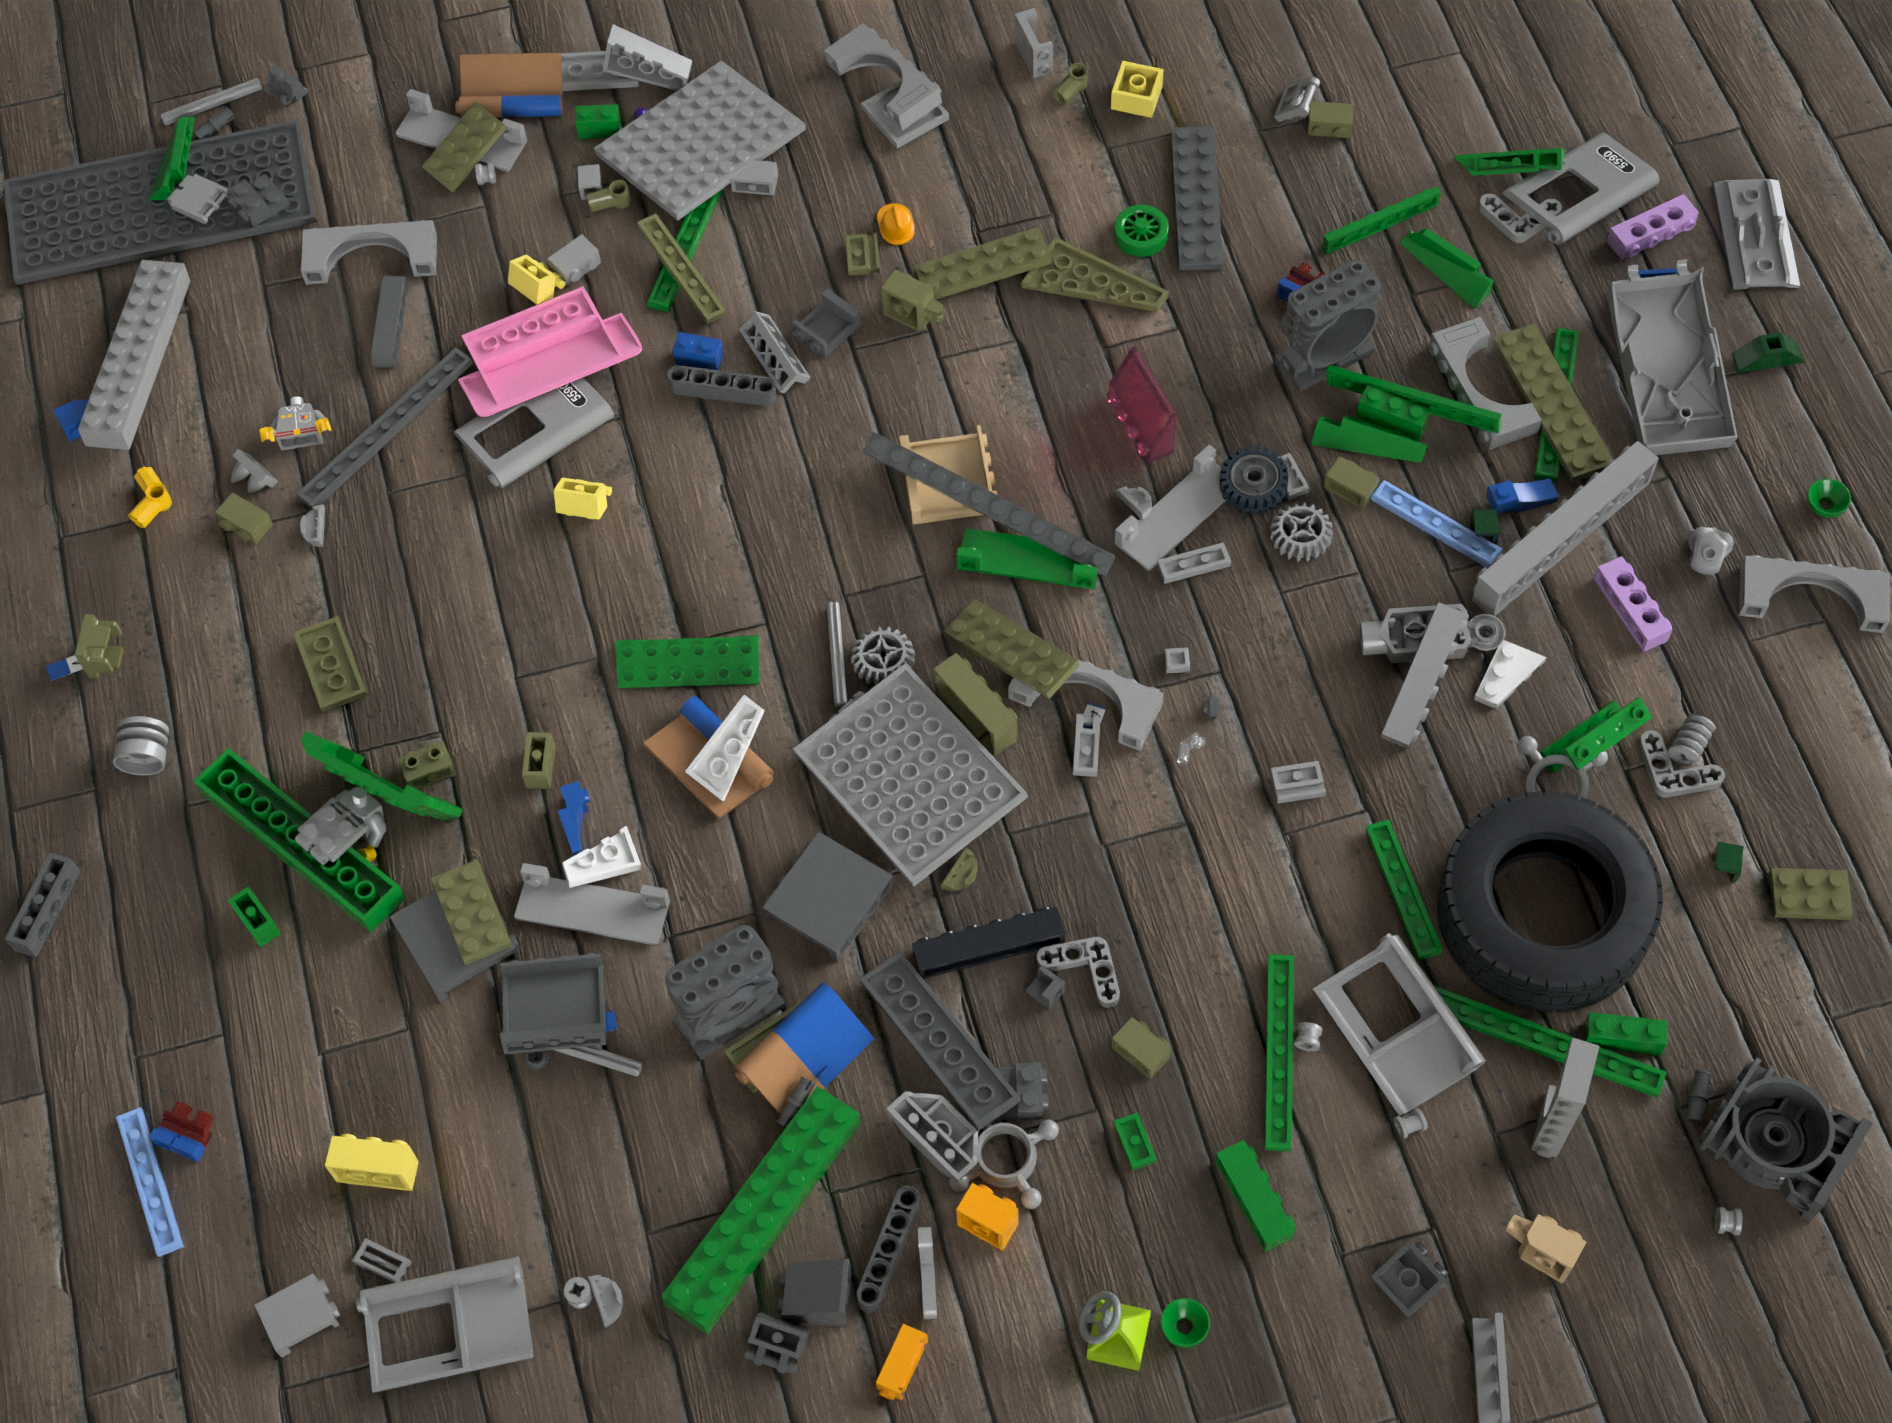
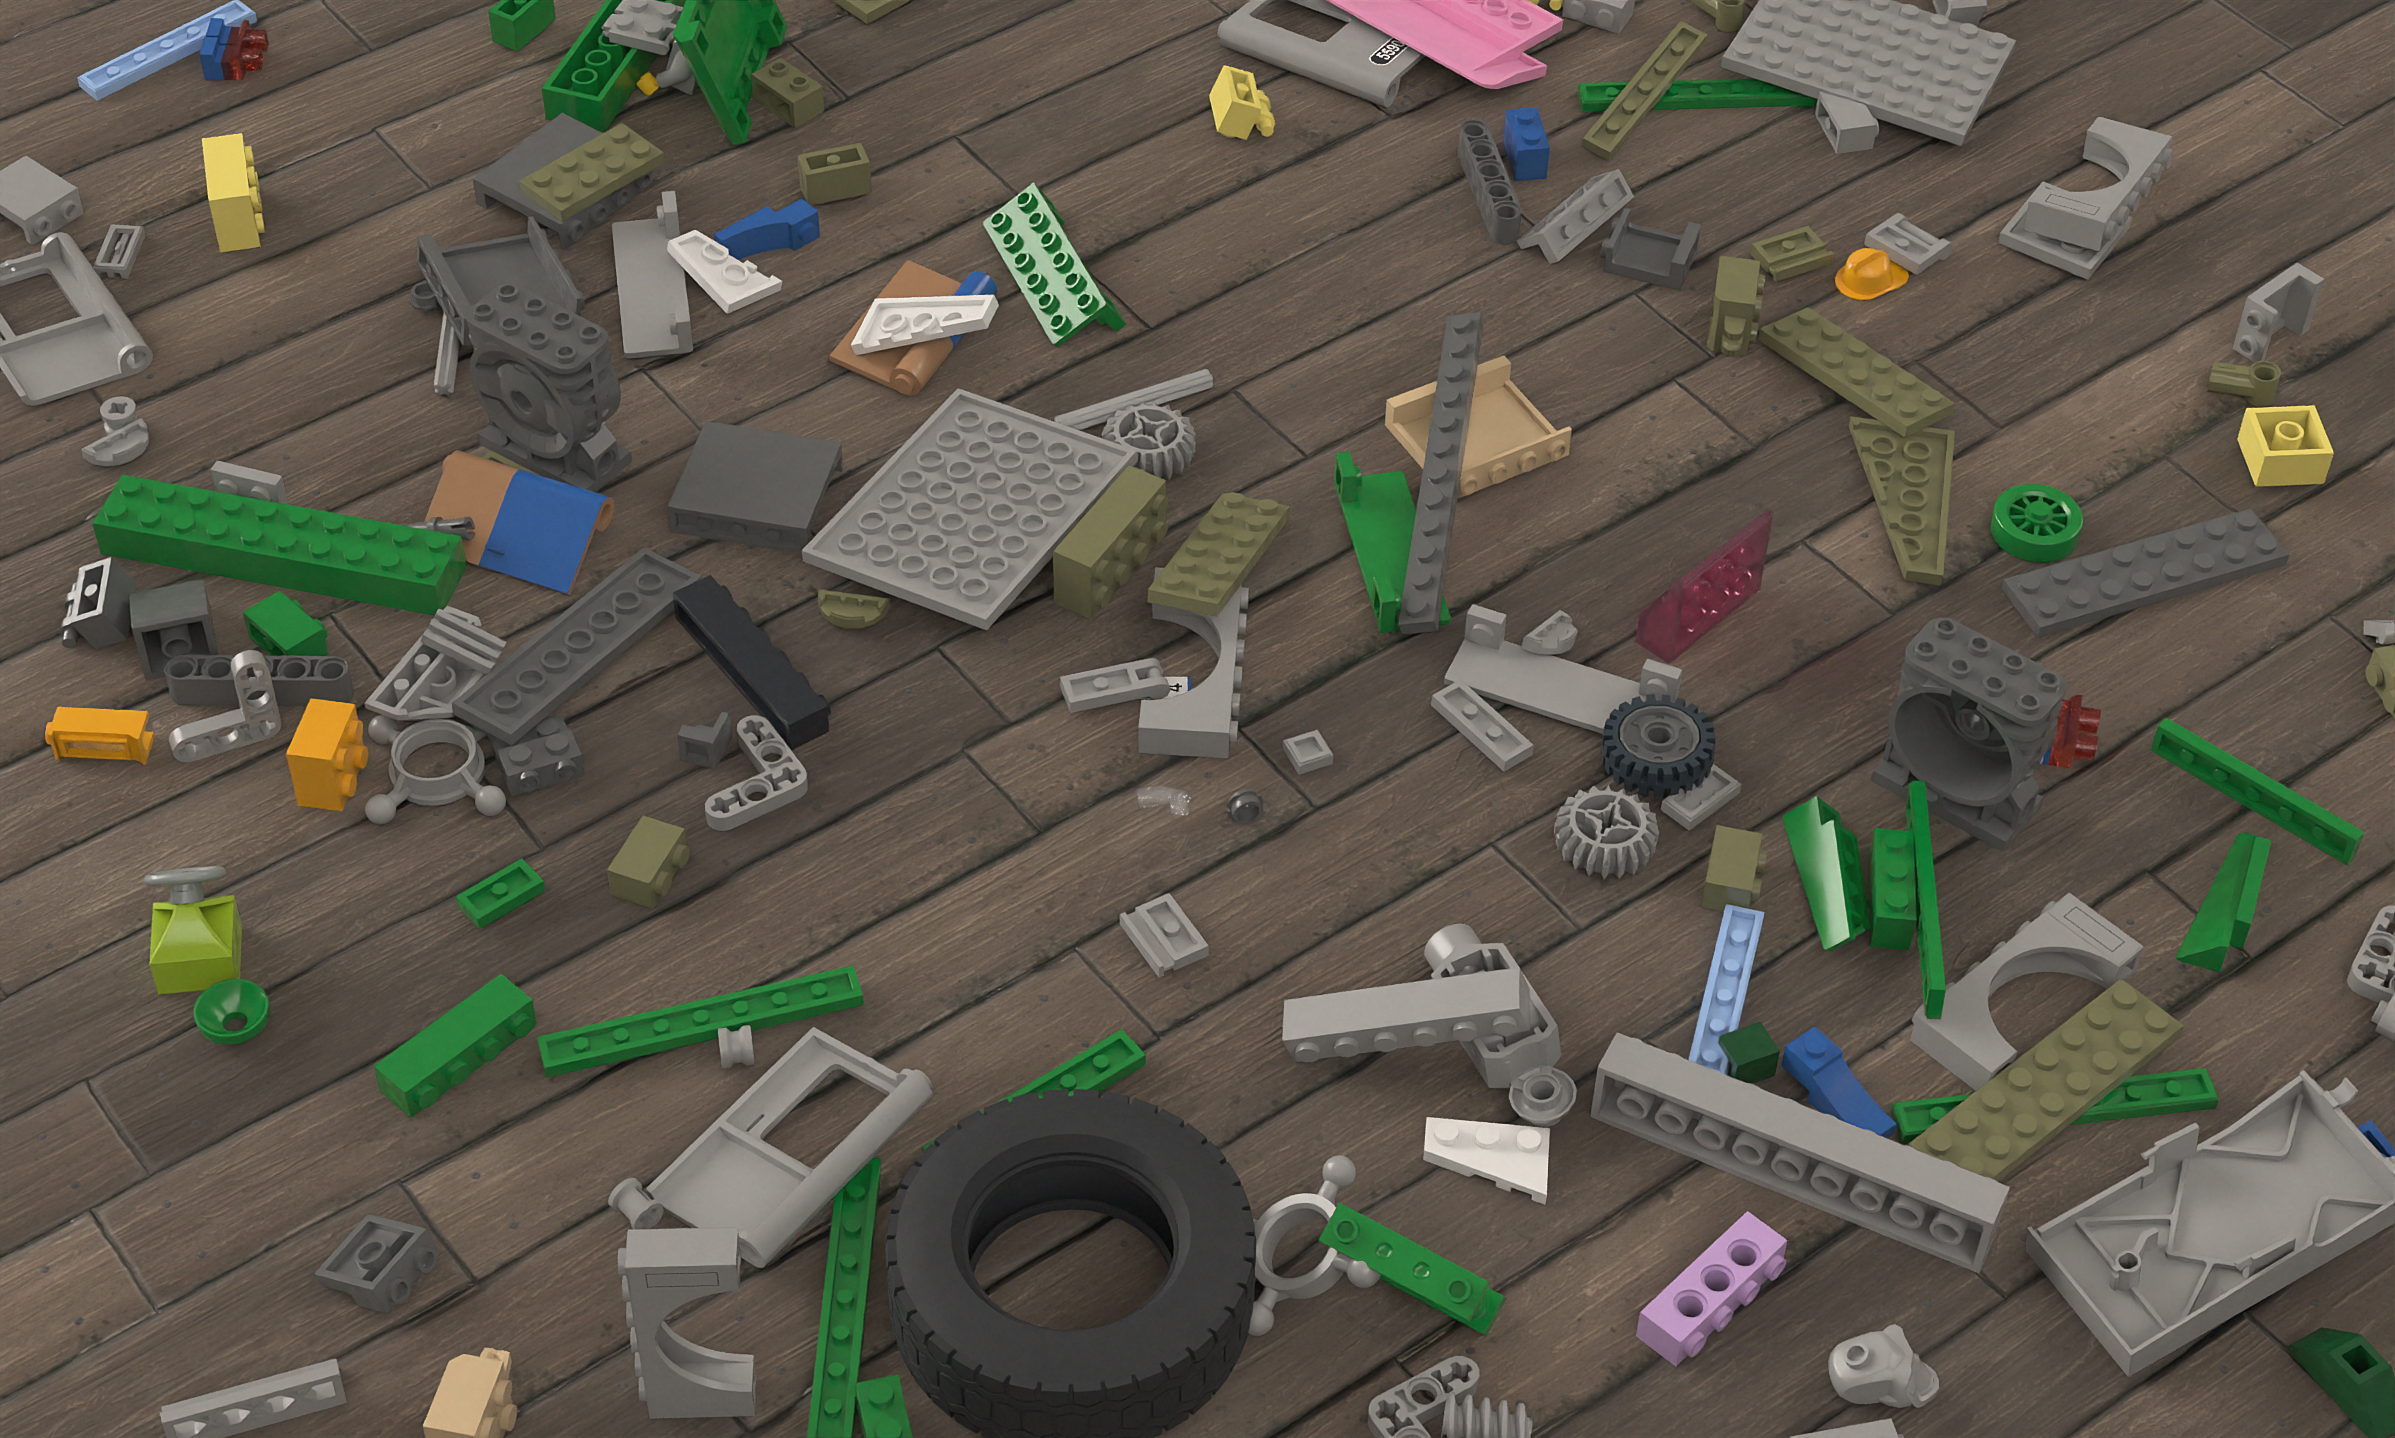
camera: 65 degrees right, 15 degrees down
(703, 1216) = (248, 482): none -> light grey plate
(849, 1222) = (284, 628): none -> green brick
(881, 193) = (1908, 244): none -> light grey plate
(940, 1093) = (465, 638): none -> light grey tile

